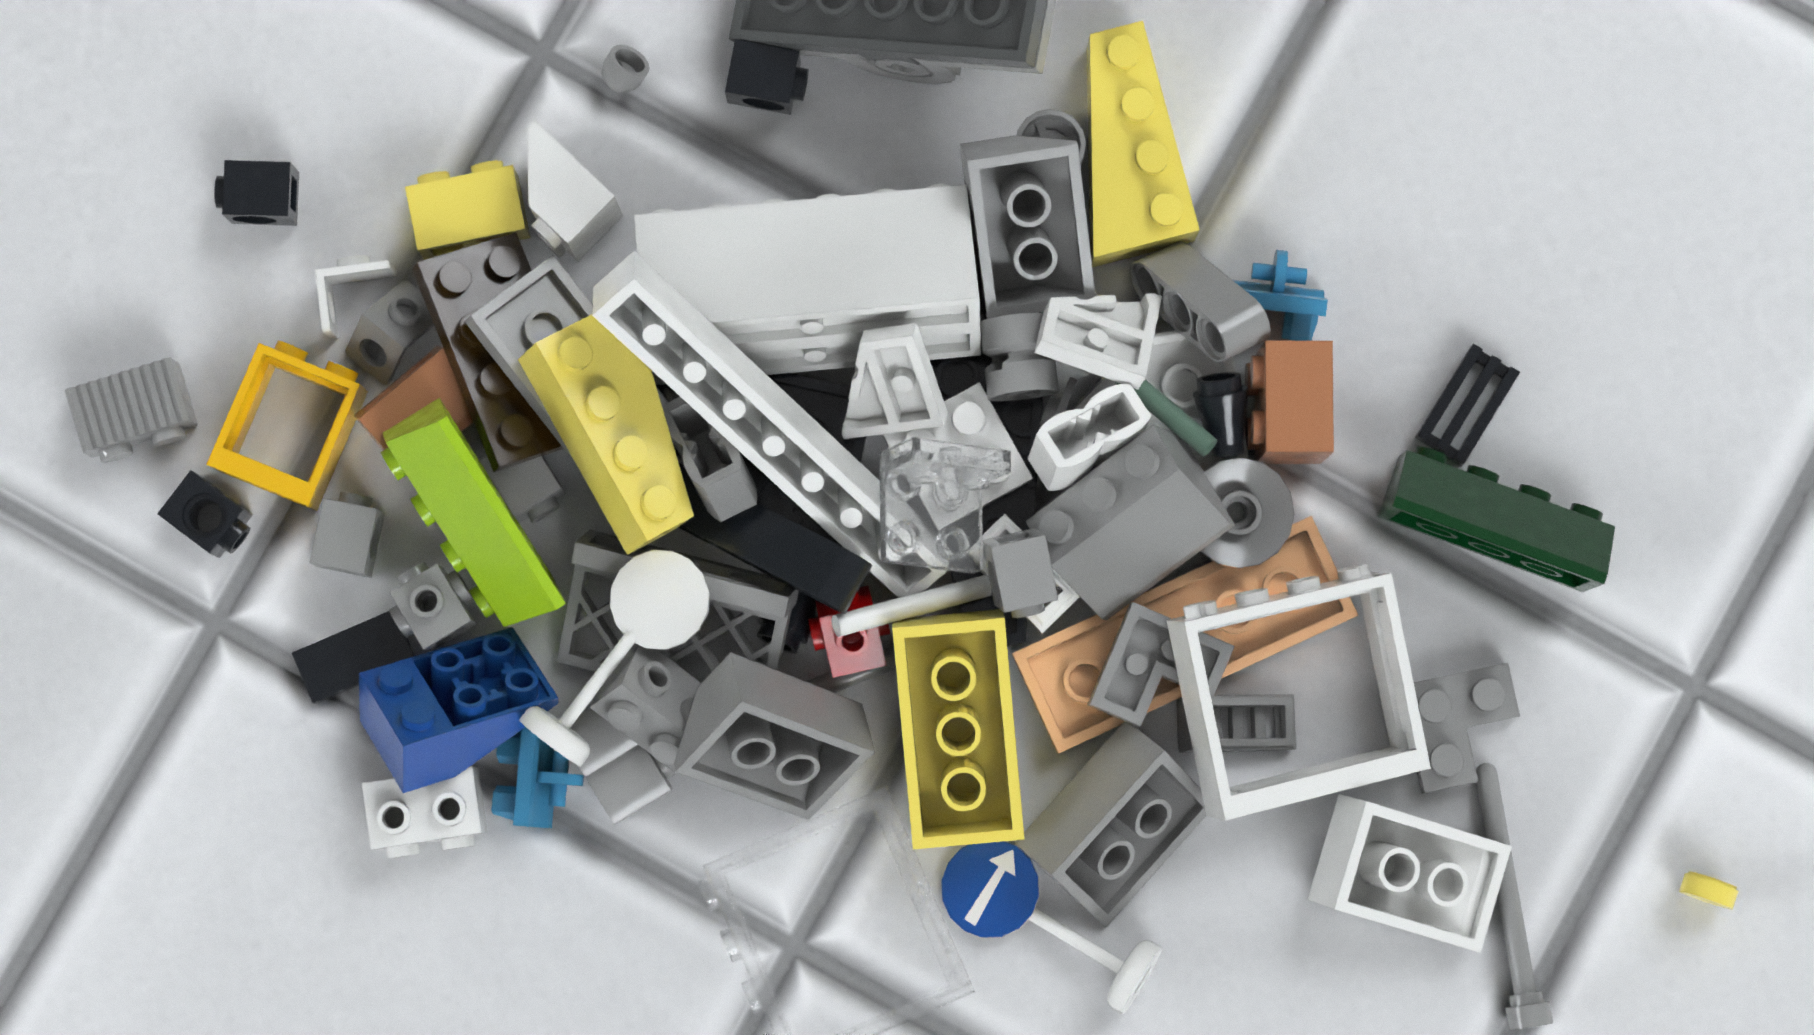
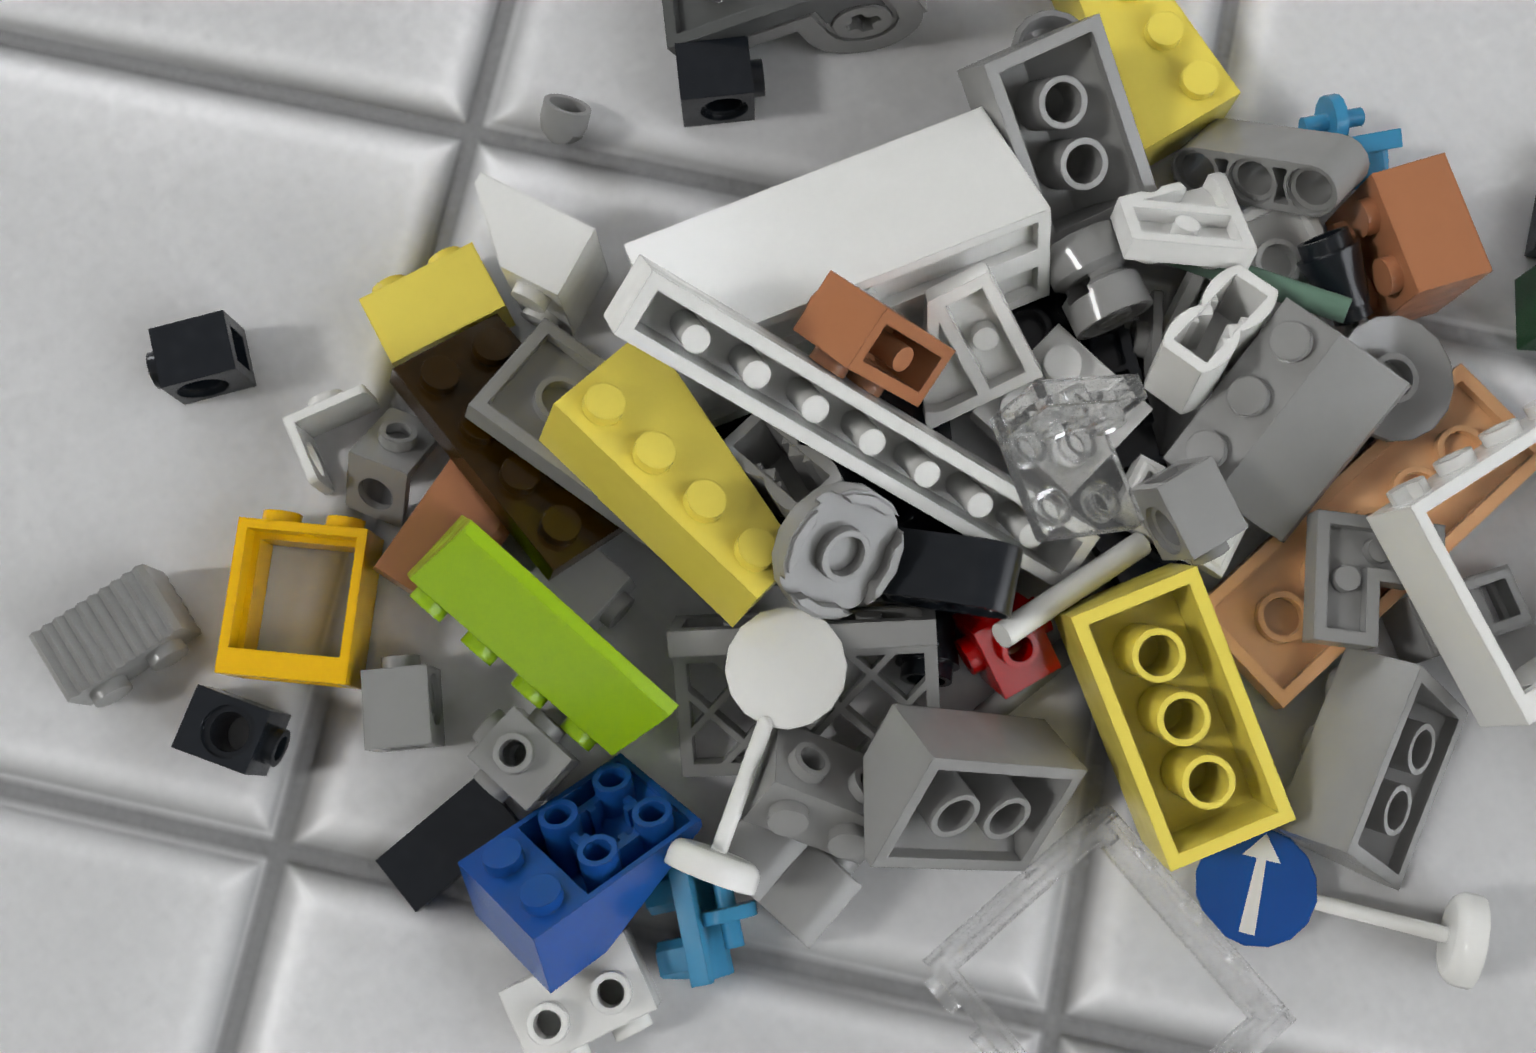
camera: 15 degrees left, 5 degrees down
(722, 521) = (837, 549): none -> light grey tile
(802, 364) = (870, 342): none -> nougat brick

